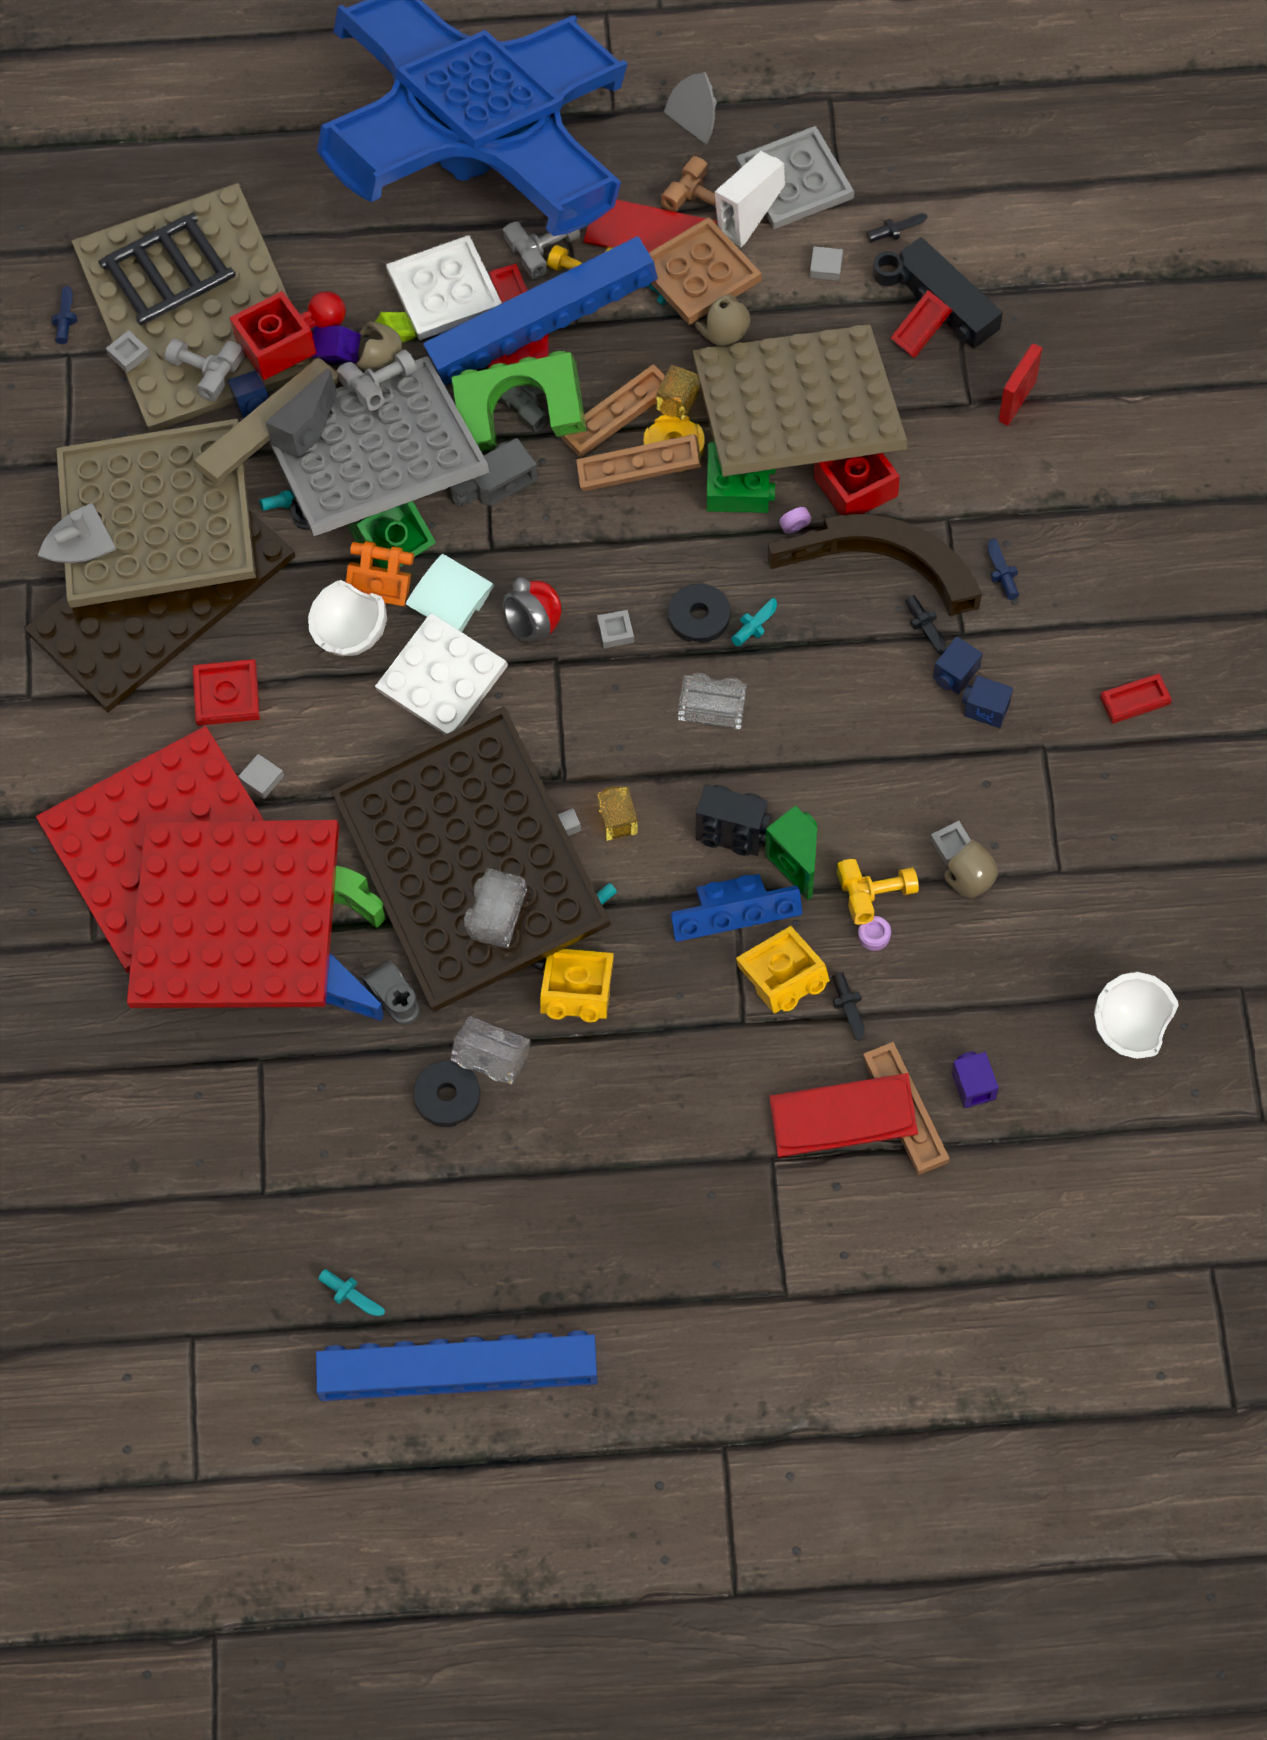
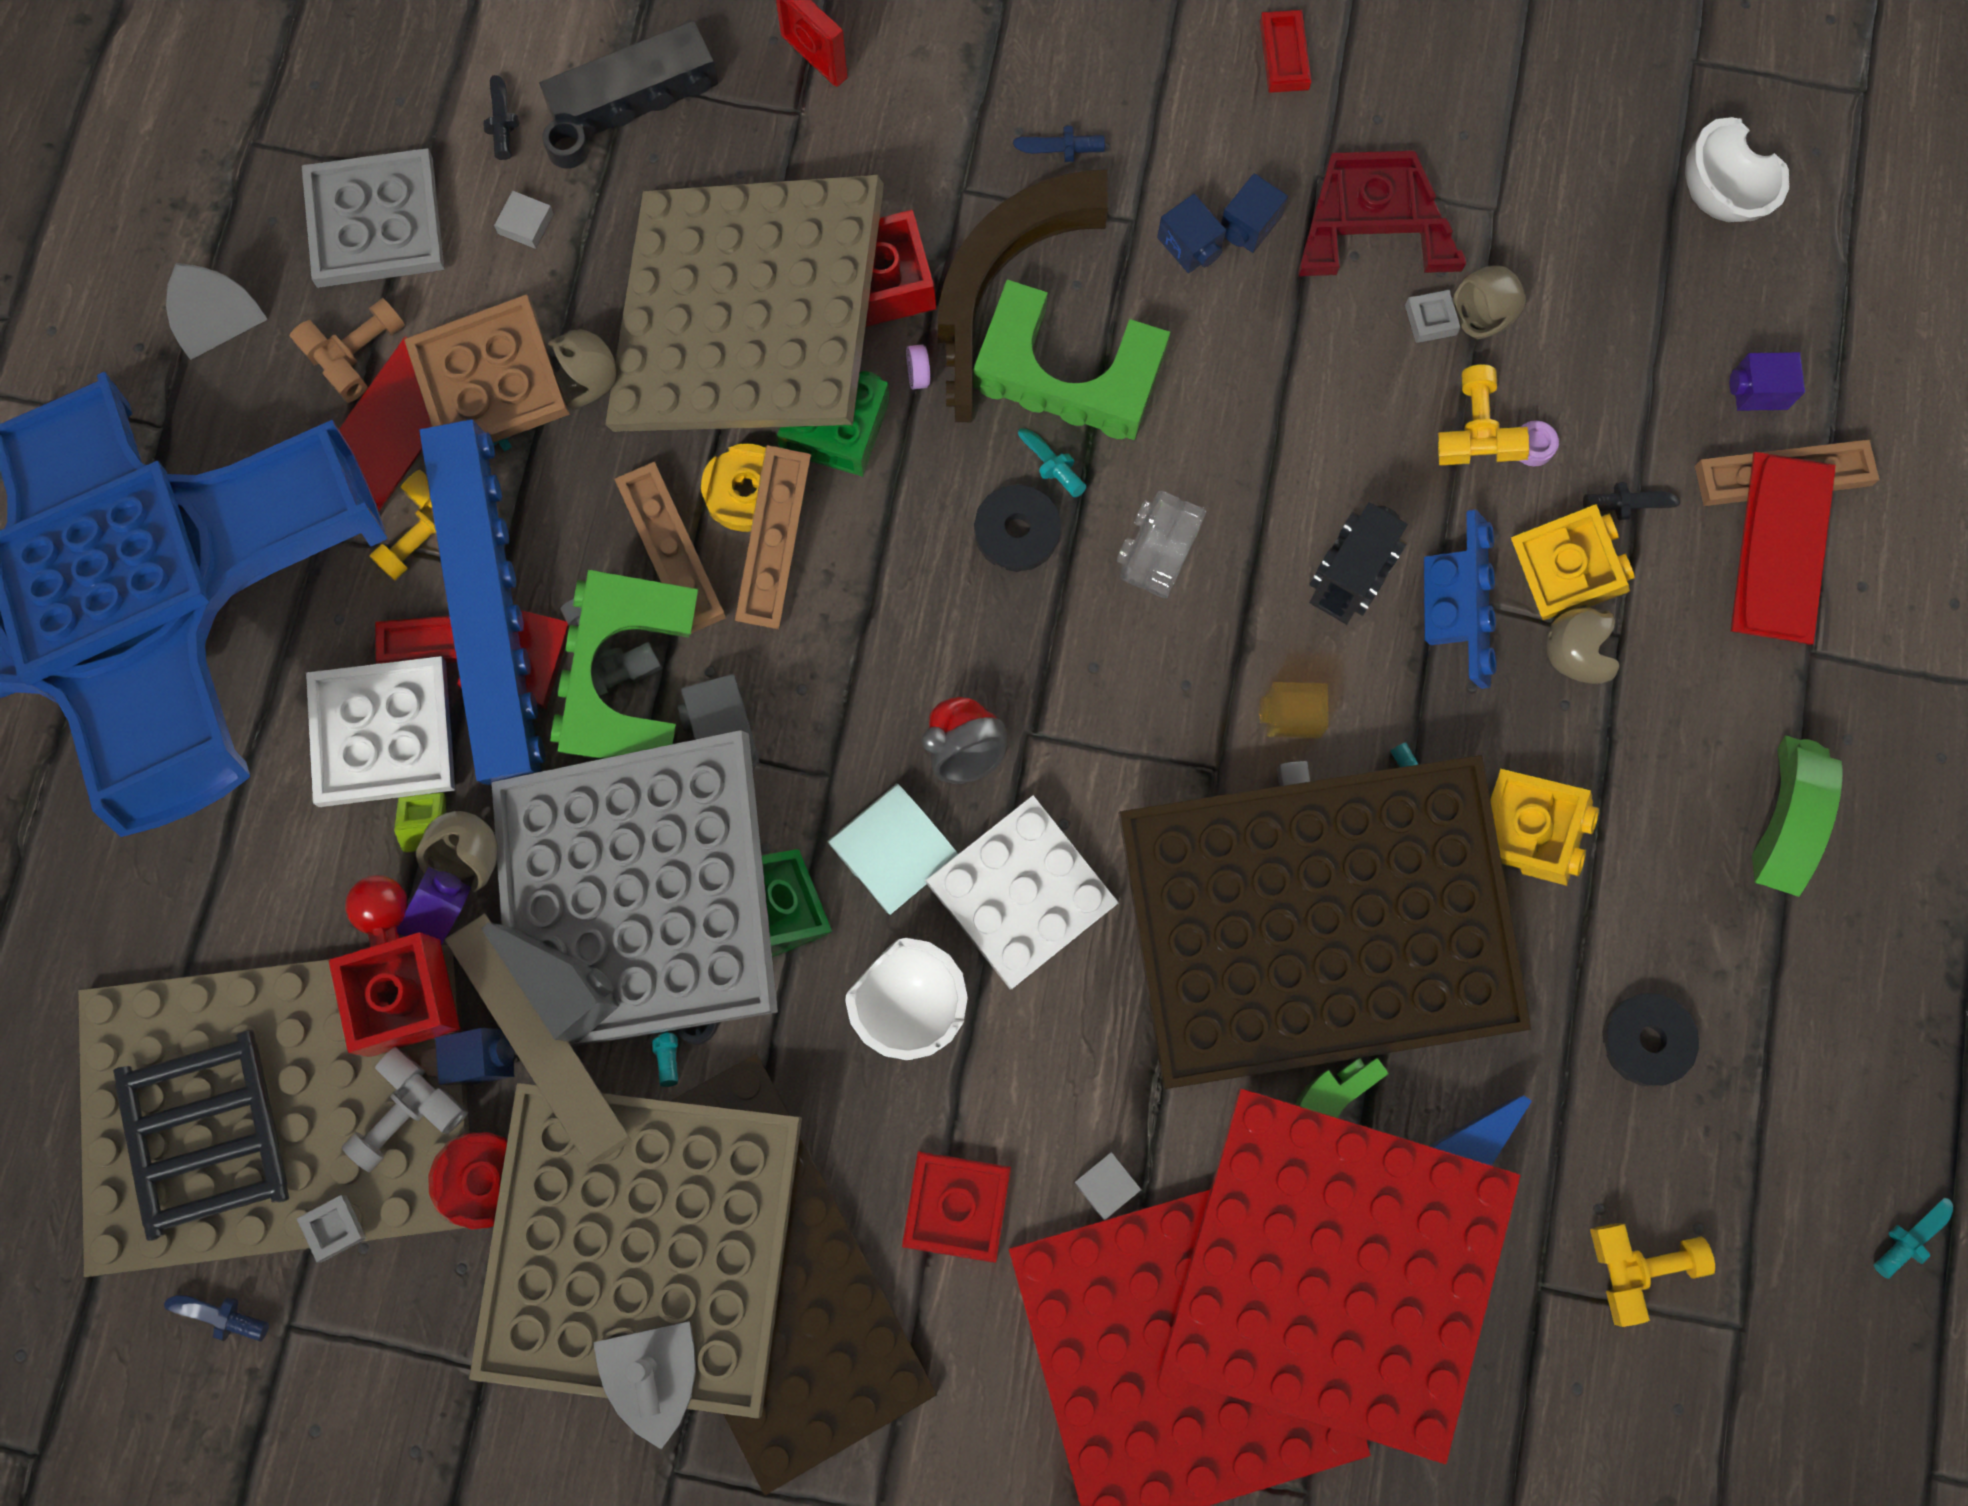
camera: 80 degrees left, 10 degrees up
(174, 410) = (468, 1179): none -> red tile
(281, 1108) = (1633, 1273): none -> yellow bar
(367, 383) = (520, 875): light grey bar -> none
(387, 583) = (848, 944): orange plate -> none
(390, 990) = (1488, 1078): dark grey piece -> none
(490, 1050) = (1615, 965): clear brick -> none
(495, 907) = (1431, 900): clear brick -> none
(532, 247) = (356, 592): light grey bar -> none
(615, 629) = (1009, 641): light grey tile -> none
(635, 1147) = (1801, 818): none -> bright green arch
(677, 392) = (682, 454): clear yellow brick -> none
(719, 978) = (1575, 643): none -> dark tan helmet
(748, 196) = (393, 273): white slope -> none
(792, 848) = (1426, 490): green slope -> none
(816, 649) = (1109, 402): none -> bright green arch
(921, 324) = (670, 125): red tile -> none
(924, 620) = (1109, 257): black piece -> none
(1033, 780) = (1377, 196): none -> dark red wing

